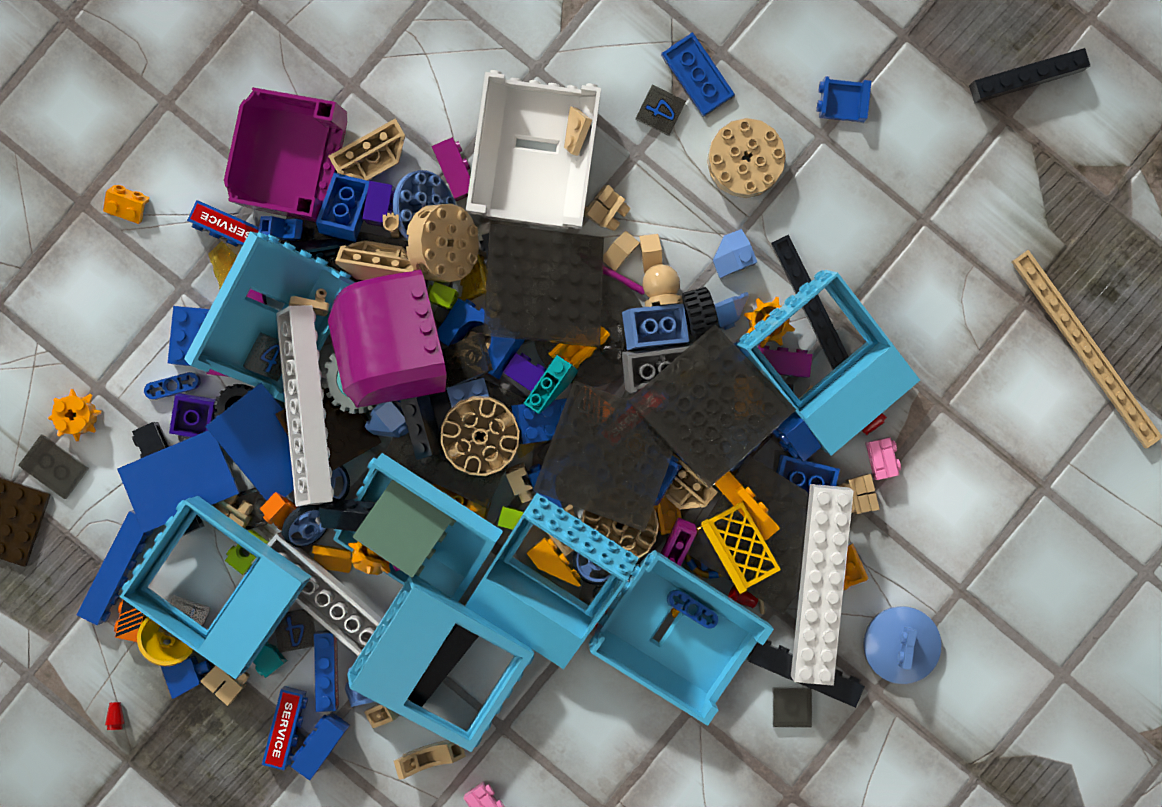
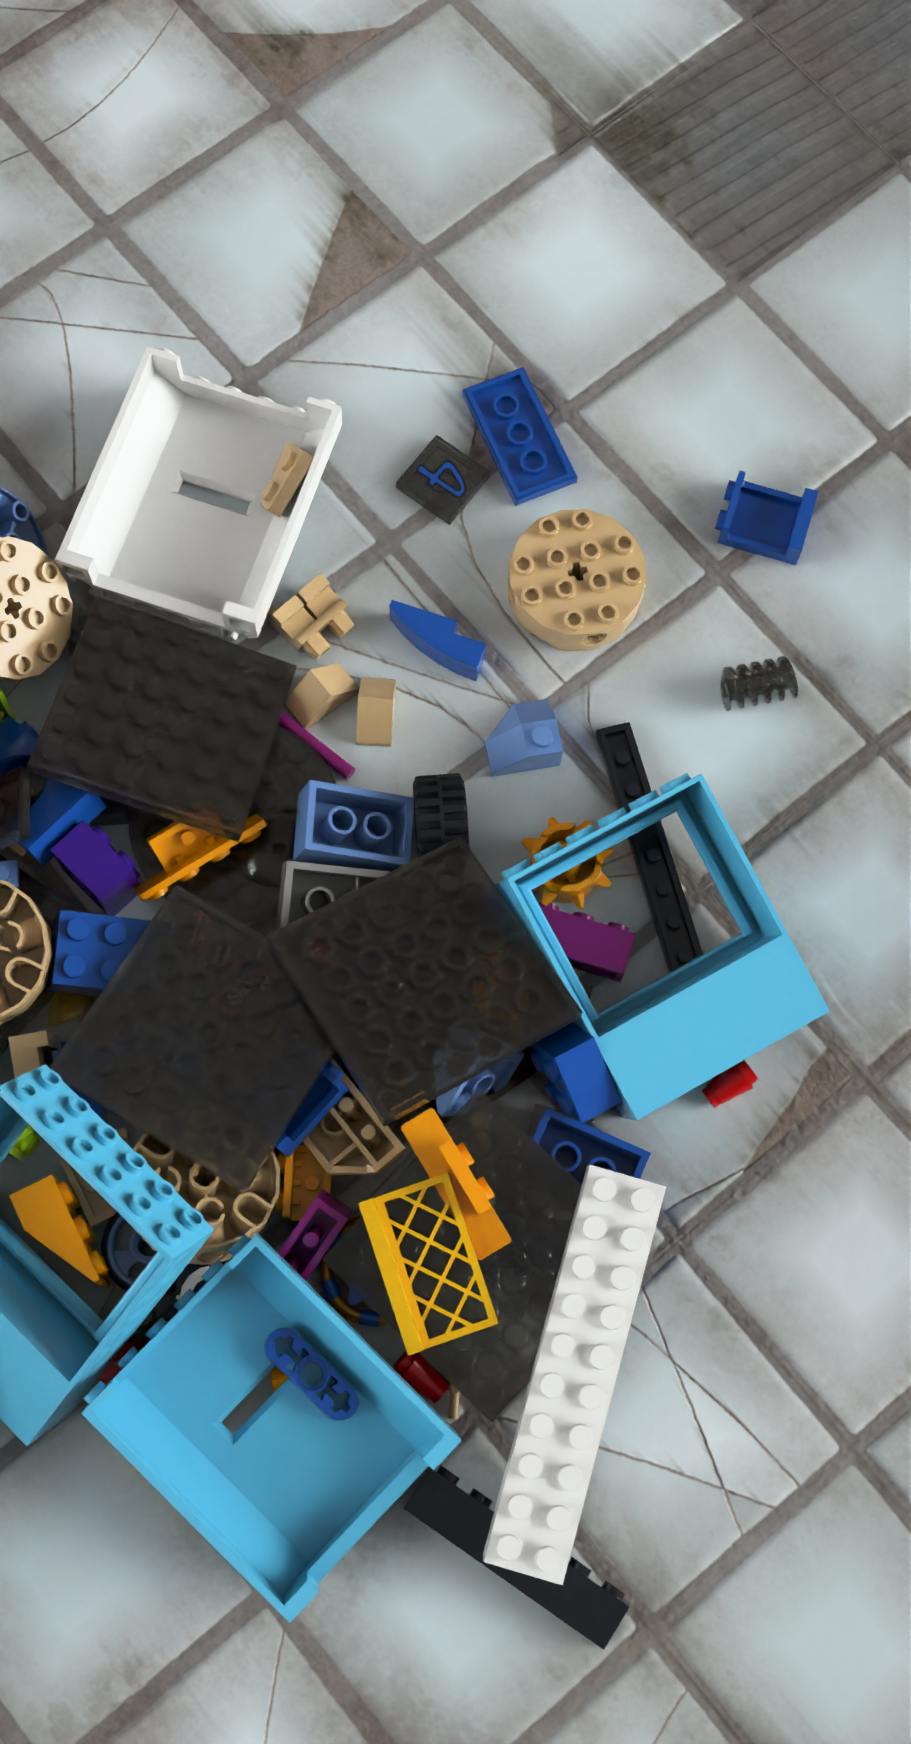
camera: 10 degrees right, 15 degrees down
(453, 167) = (56, 494): magenta brick -> none
(475, 282) = (42, 692): clear yellow wing -> none
(551, 384) = (134, 885): teal slope -> none
(661, 286) = (381, 760): tan tile -> none
(677, 207) = (438, 639): none -> blue slope
(730, 310) = (497, 827): medium blue slope -> none
(792, 707) = (476, 1627): clear smoke tile -> none
(854, 198) = (758, 681): none -> clear smoke piece
(854, 569) = (644, 1359): light orange bracket -> none
(860, 485) = (686, 1234): tan hips -> none
(883, 458) = (738, 1155): bright pink brick -> none
(902, 645) = (720, 1538): medium blue bracket -> none

